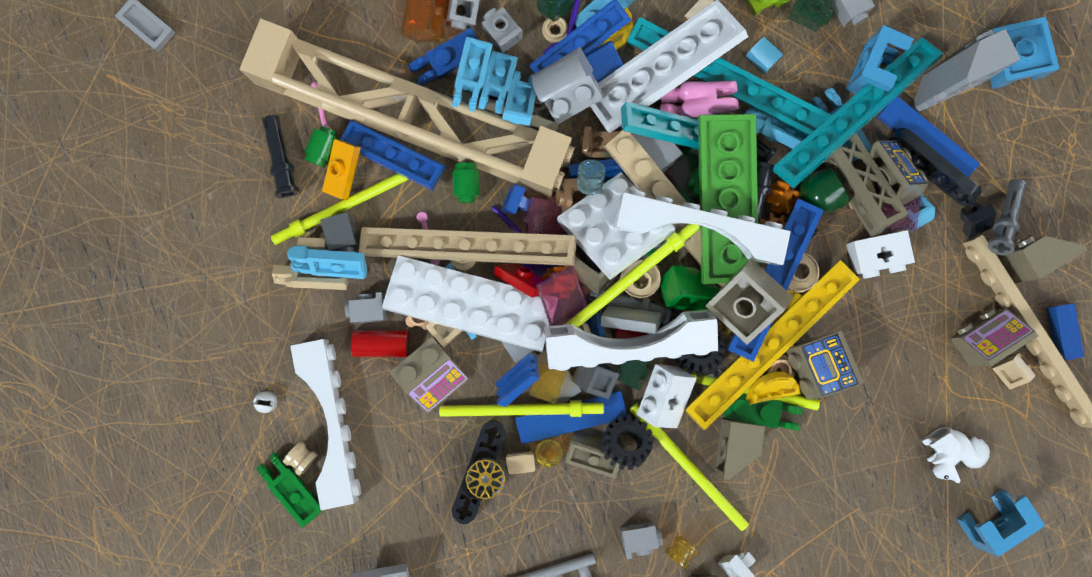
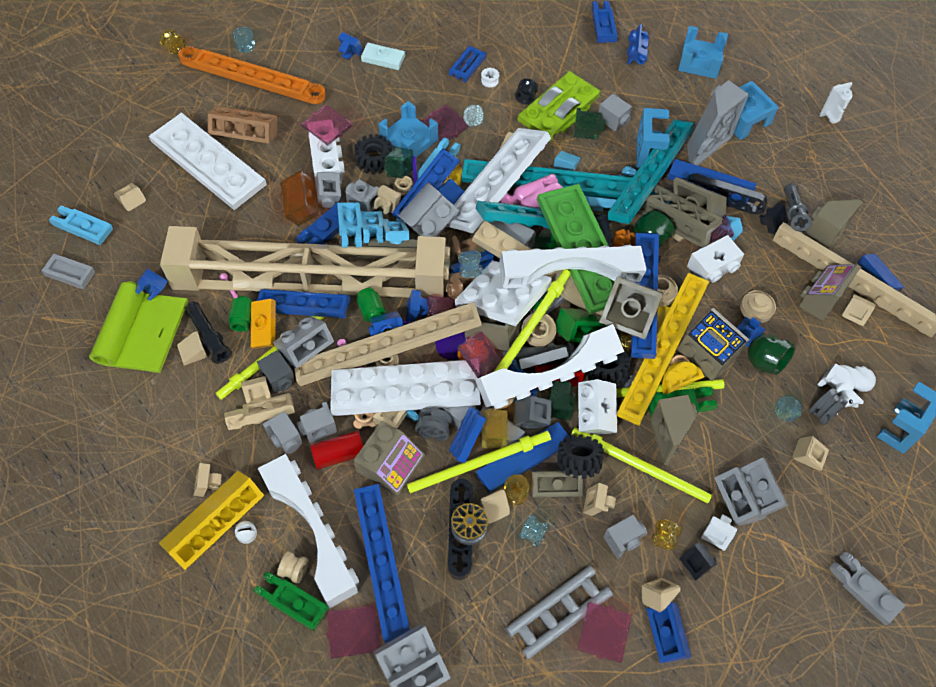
camera: 20 degrees left, 25 degrees down
(207, 128) = (138, 330): none -> lime door
(227, 73) = (151, 283): none -> blue tile
(233, 379) = (211, 519): none -> yellow brick
(235, 335) = (205, 480): none -> tan tile
(258, 172) = (191, 349): none -> tan slope
(327, 262) = (273, 392): medium azure hinge -> none
(329, 309) = (283, 433): none -> light grey brick
(342, 538) = (352, 632): none -> clear pink piece
(378, 209) = (303, 341): none -> light grey brick
(388, 482) = (381, 563): none -> blue plate
(473, 217) = (380, 323): none -> blue brick
(487, 353) = (434, 424): none -> dark grey wheel
(519, 277) = (442, 354): red plate -> none
(529, 45) = (387, 199): none -> tan tile
(550, 502) = (534, 530): none -> clear light blue wheel
(627, 492) = (598, 500): none -> tan tile
(788, 540) = (751, 492): none -> light grey brick
(874, 461) = (788, 408): none -> clear light blue tile
(874, 513) = (811, 452): none -> tan slope
(875, 354) = (750, 329): none -> blue tile
(883, 393) = (766, 352): none -> dark green helmet
(901, 328) = (758, 305): none -> tan plate
(917, 475) = (828, 406): none -> dark grey wheel

